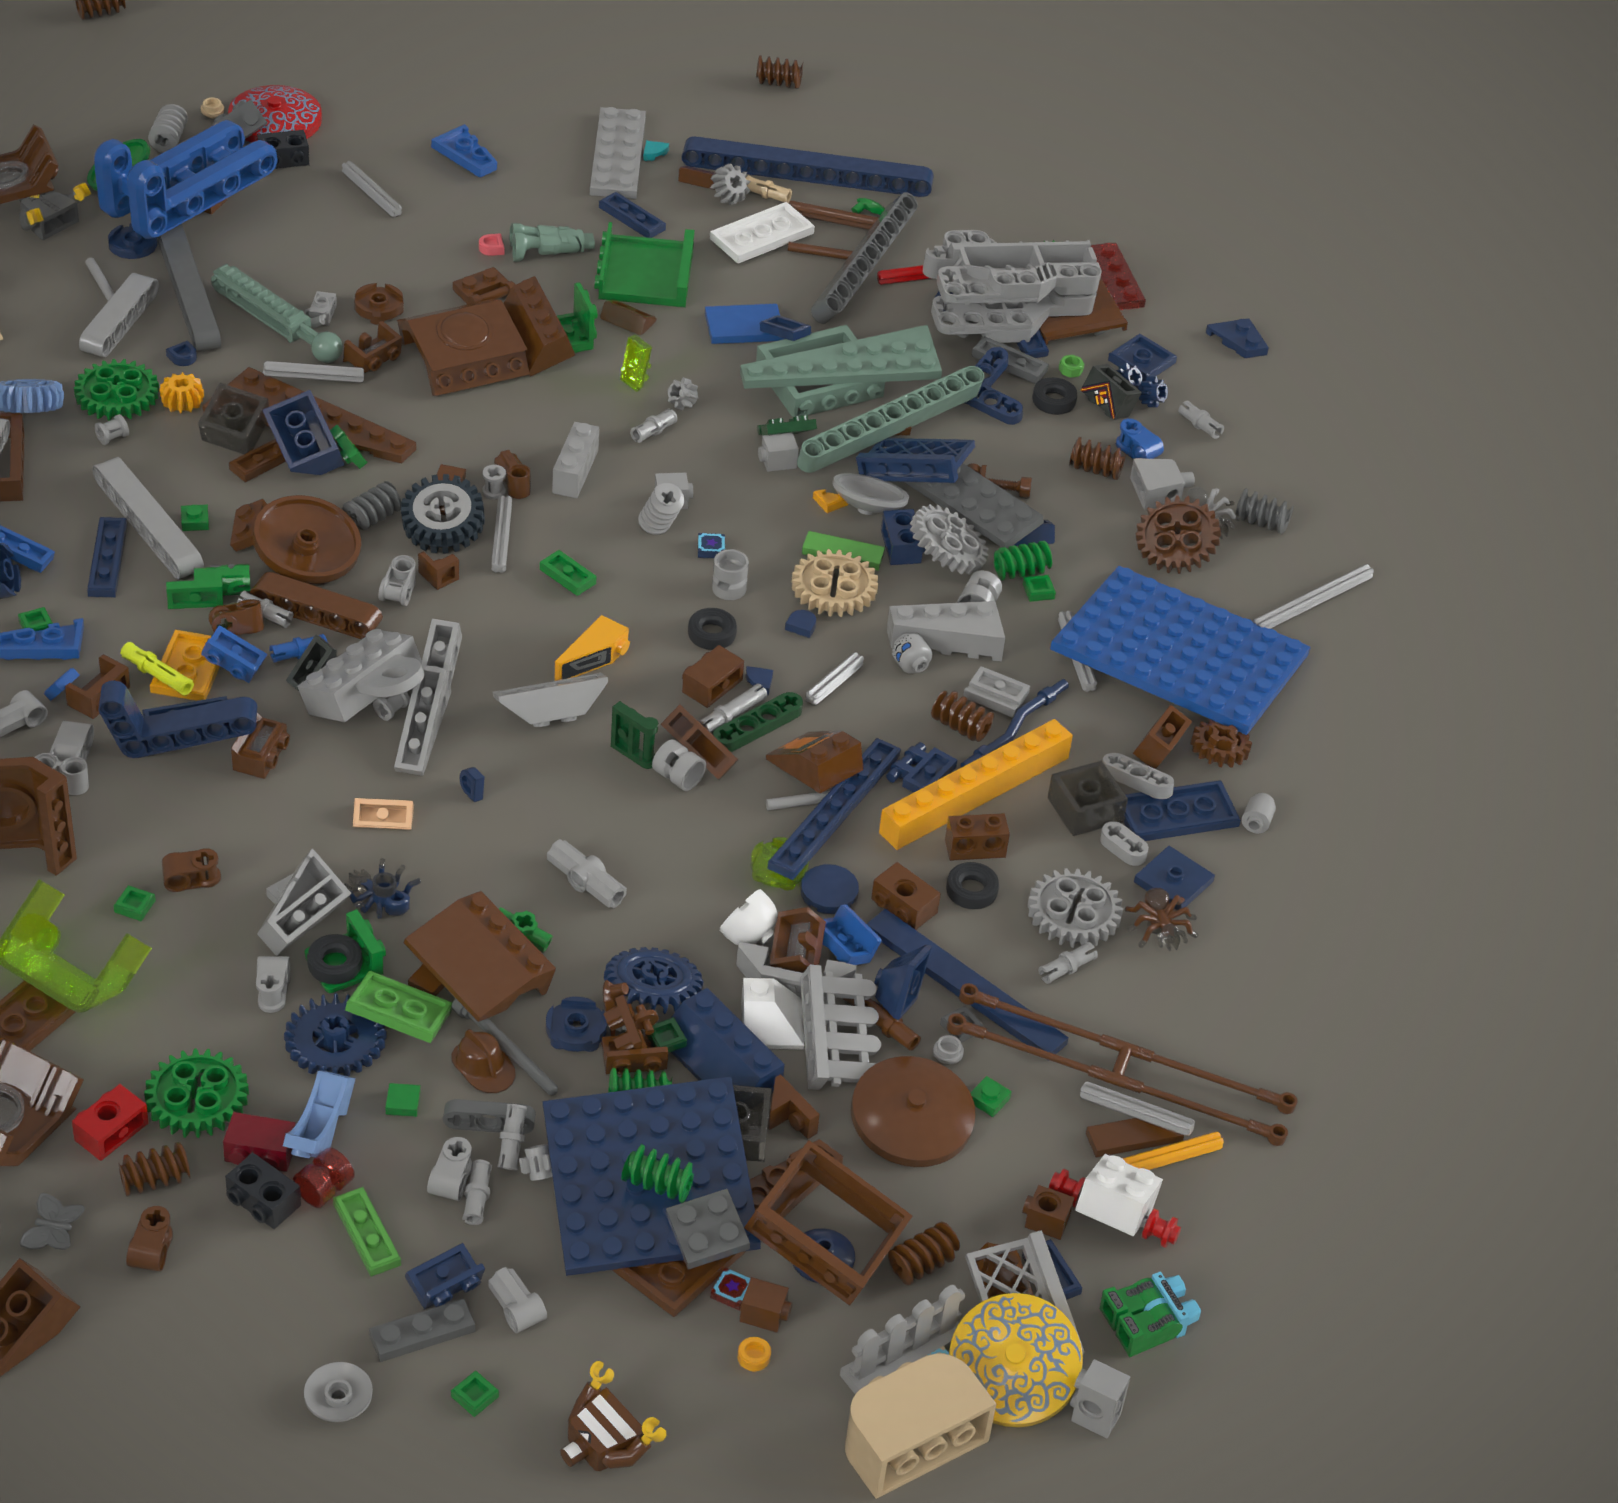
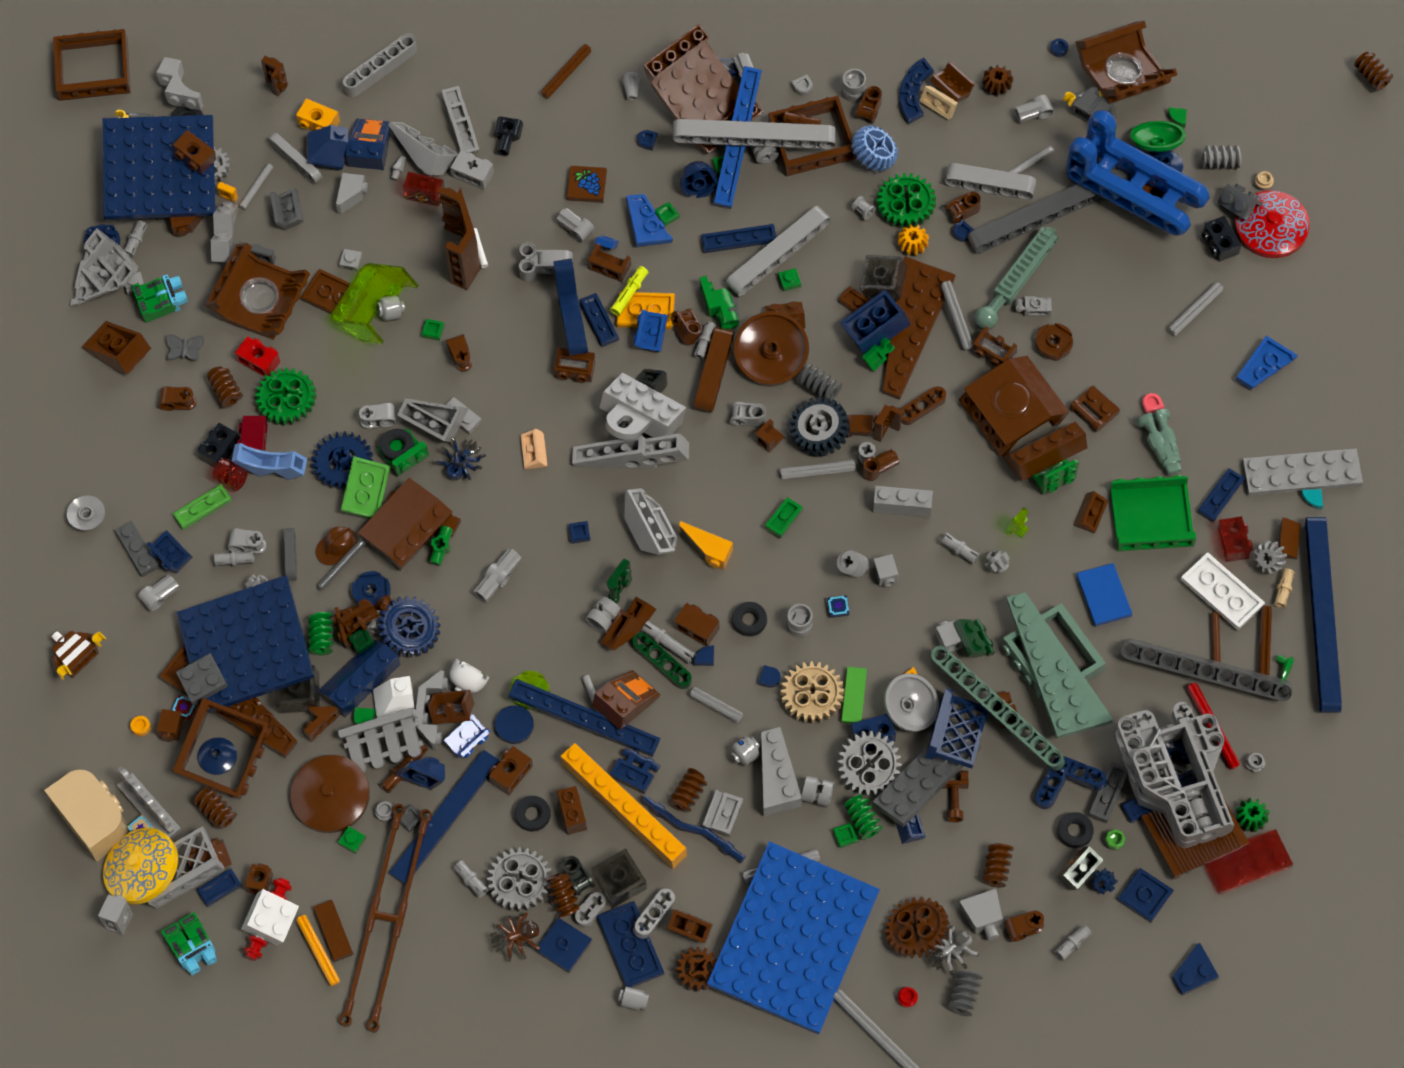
camera: 90 degrees right, 20 degrees up
(26, 260) = (1039, 107): none -> light grey piece
(80, 942) = (390, 308): none -> light grey head
(85, 155) = (1178, 115): none -> green tile
(149, 340) = (960, 207): none -> reddish brown piece
(291, 649) = (671, 368): blue pin -> none
(403, 1099) = (300, 506): green tile -> none
(433, 436) = (926, 397): none -> reddish brown beam
(458, 447) = (888, 417): none -> reddish brown bracket
(472, 783) = (565, 494): dark blue tile -> none
(474, 1393) = (97, 583): green tile -> none
(512, 1137) = (271, 567): light grey pin -> none
(534, 781) = (579, 532): none -> dark blue tile
(658, 1173) = (228, 643): green piece -> none
(696, 210) = (1230, 539): none -> clear red brick
(785, 328) = (1089, 620): dark blue tile -> none
(792, 1057) = (363, 715): none -> green tile
(1072, 848) = (579, 877): none -> pearl dark grey piece
(1108, 857) = (563, 894): none -> reddish brown piece
(1137, 1108) = (346, 927): light grey axle -> none
(1138, 440) = (1026, 897): blue piece -> none
(1153, 391) = (1092, 901): dark blue gear -> none
(1179, 449) = (1022, 926): none -> reddish brown piece
(1264, 564) = (907, 997): none -> red plate

